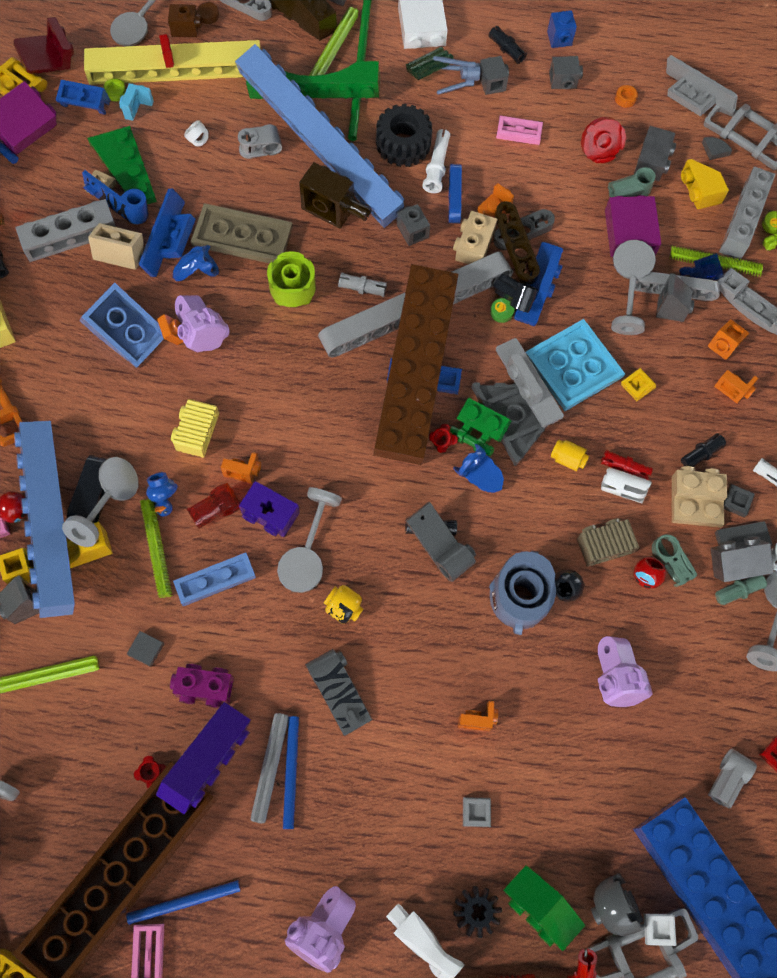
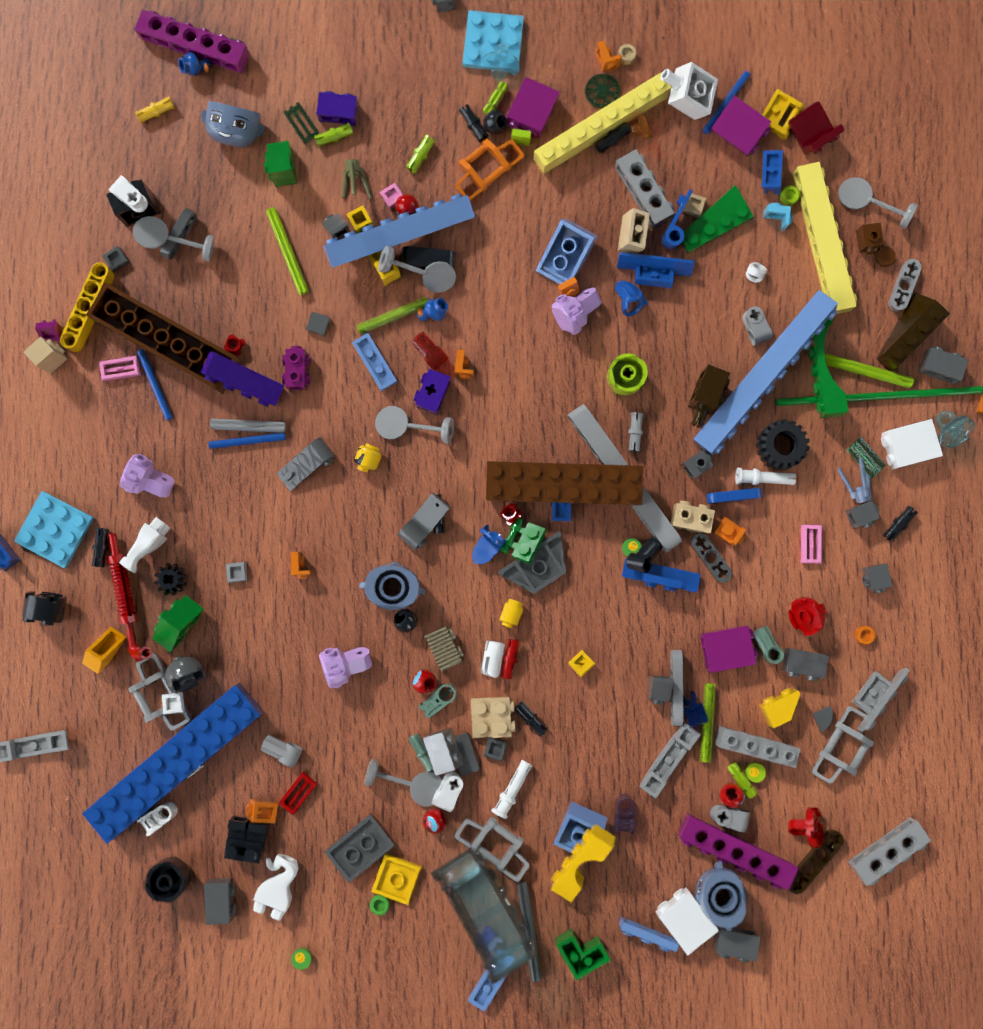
camera: 85 degrees right, 15 degrees up
(166, 51) = (824, 230): red tile -> none
(195, 427) = (489, 324): light yellow brick -> none
(241, 233) = (665, 328): dark tan plate -> none
(514, 243) = (693, 554): dark brown beam -> none
(529, 383) = (561, 577): light grey bracket -> none
(561, 29) = (923, 570): blue brick -> none
(574, 365) = (590, 610): medium azure plate -> none
(632, 261) = (688, 650): light grey piece -> none
(728, 339) = (635, 736): orange bracket -> none
(734, 387) = (592, 739): orange bracket -> none

